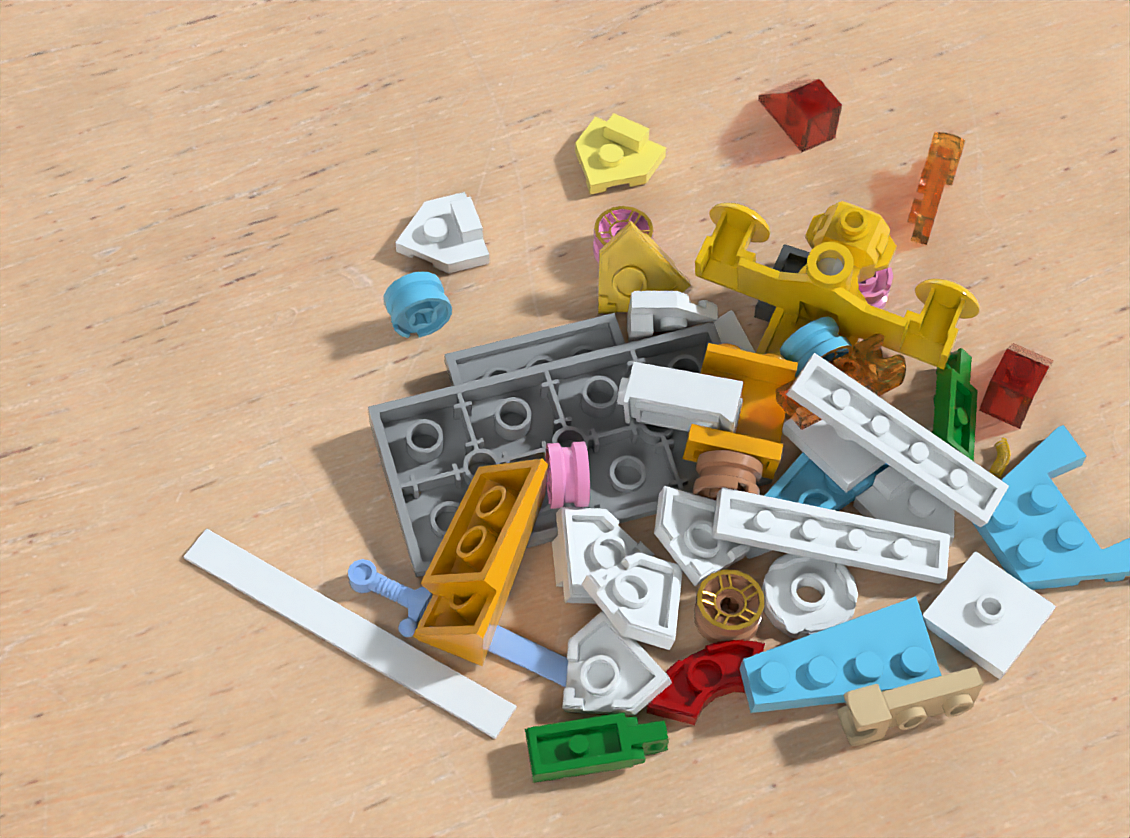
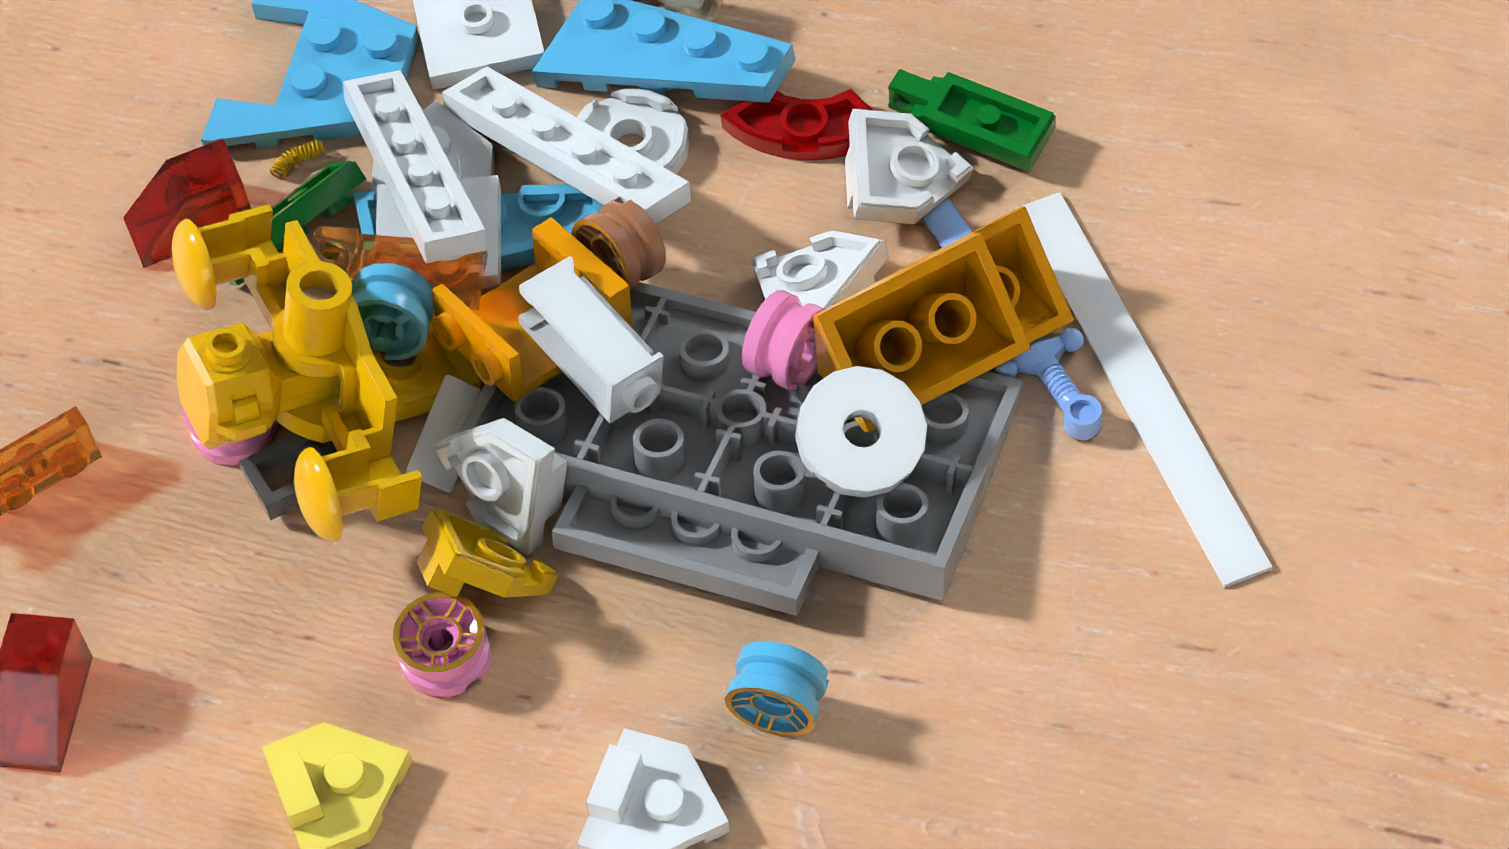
camera: 135 degrees left, 0 degrees up
(464, 422) = (867, 395): none -> white tile
(639, 597) = (812, 198): white plate -> none
(686, 530) = (703, 234): white plate -> none
(740, 594) = (708, 159): nougat wheel -> none

